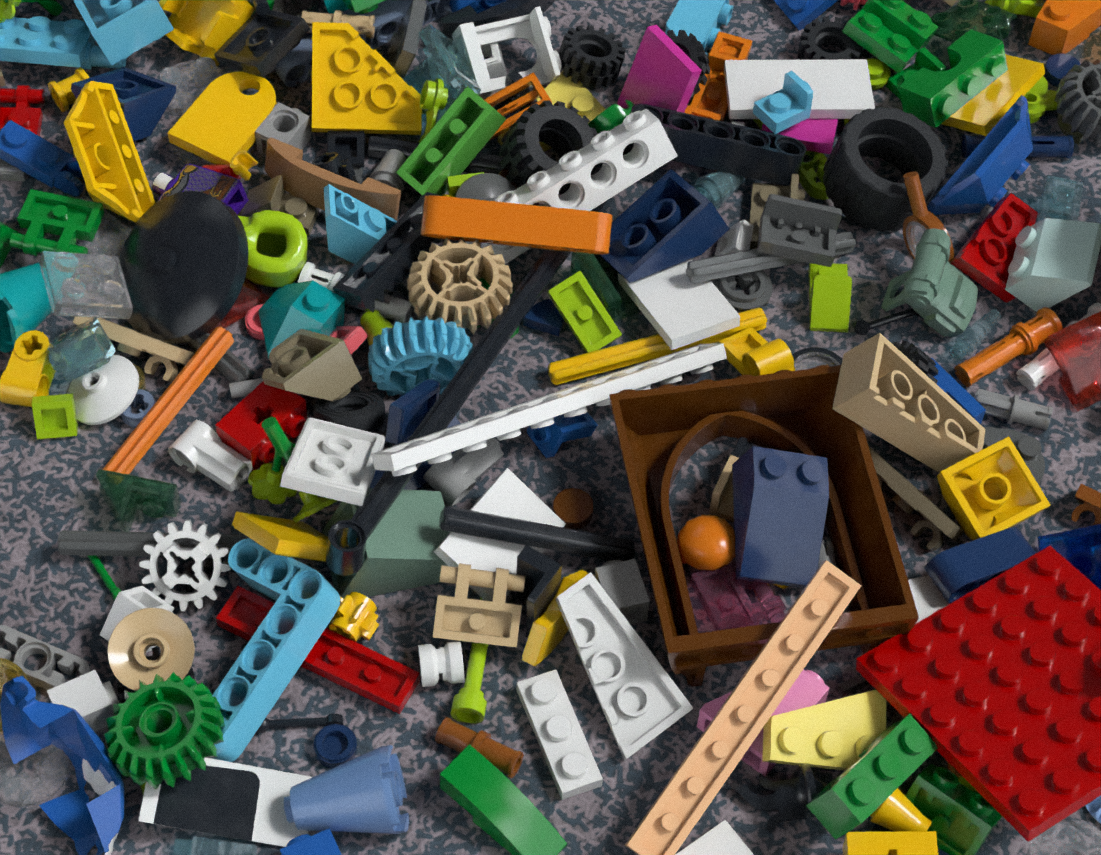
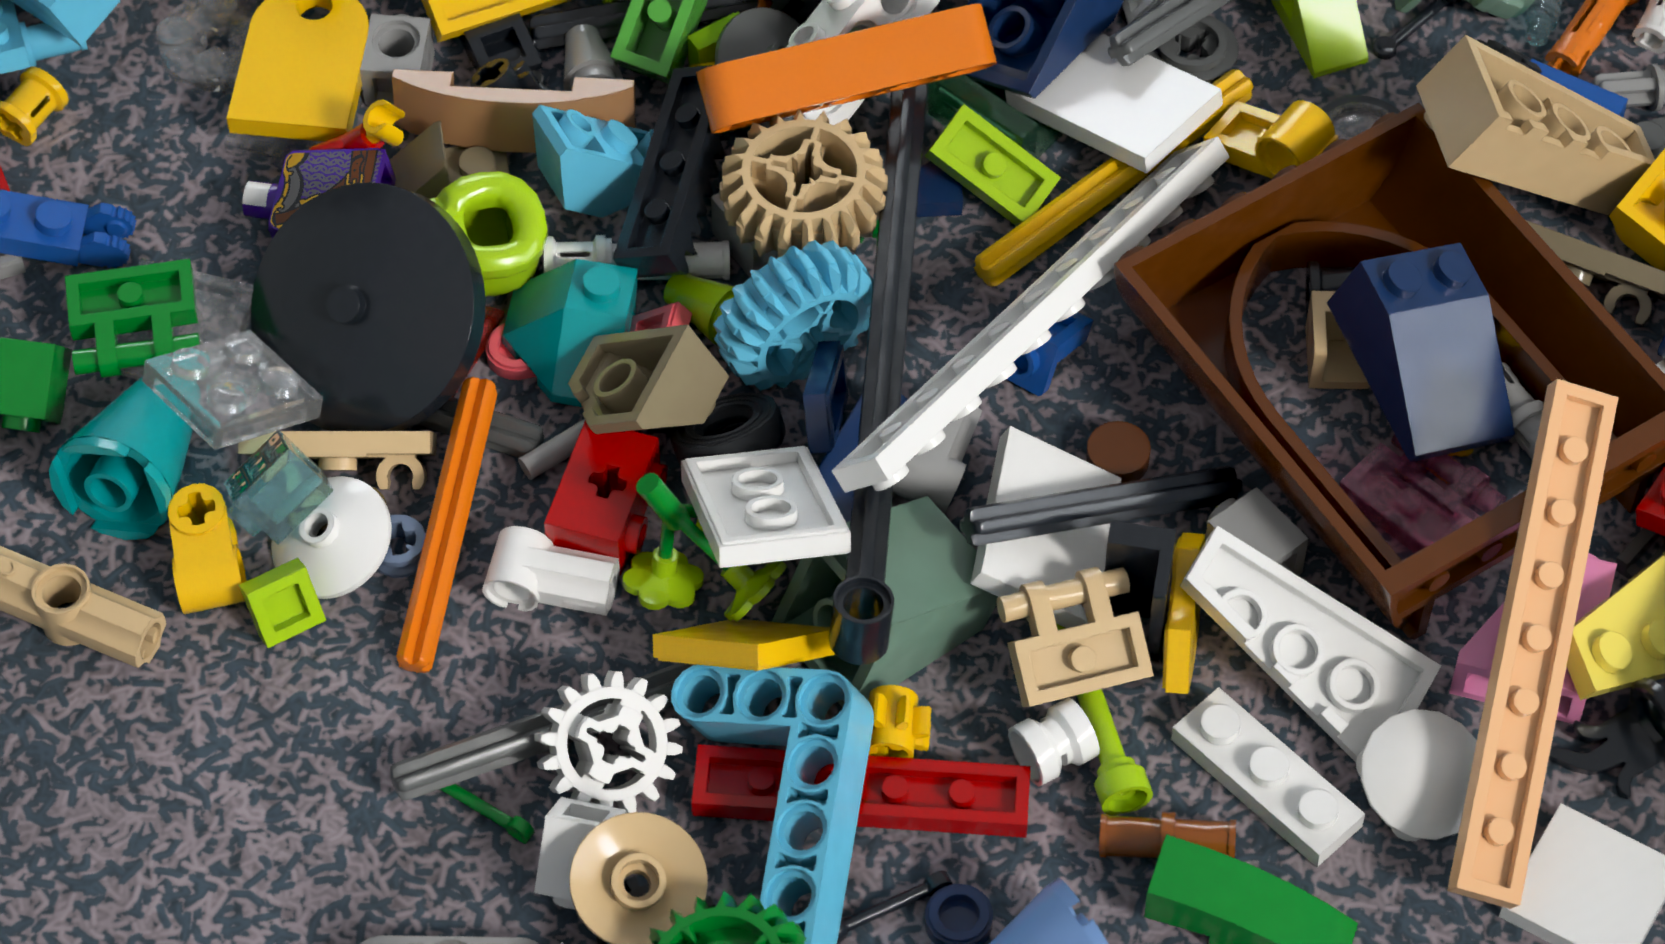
camera: 20 degrees left, 0 degrees up
(108, 152) = (159, 184): yellow wedge -> none
(130, 493) = (454, 674): clear green slope -> none
(140, 97) = (127, 99): dark blue slope -> none
(644, 765) = (1418, 773): none -> white dish
(706, 542) = (1342, 427): orange hair -> none

